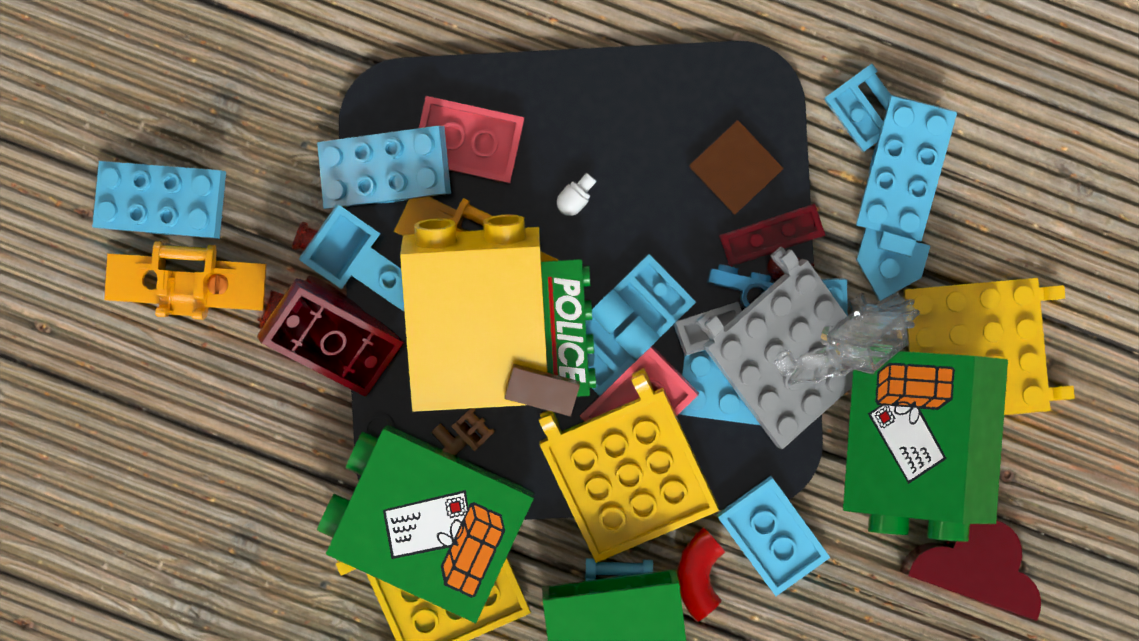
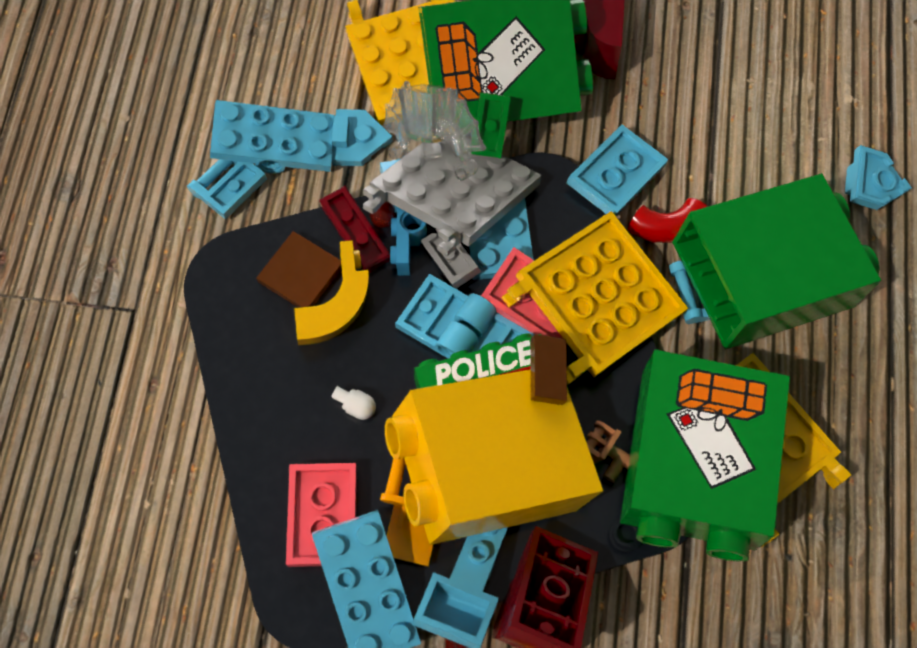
camera: 105 degrees left, 20 degrees down
(672, 197) = (330, 319): none -> yellow arch
(844, 405) = (492, 118): none -> green plate

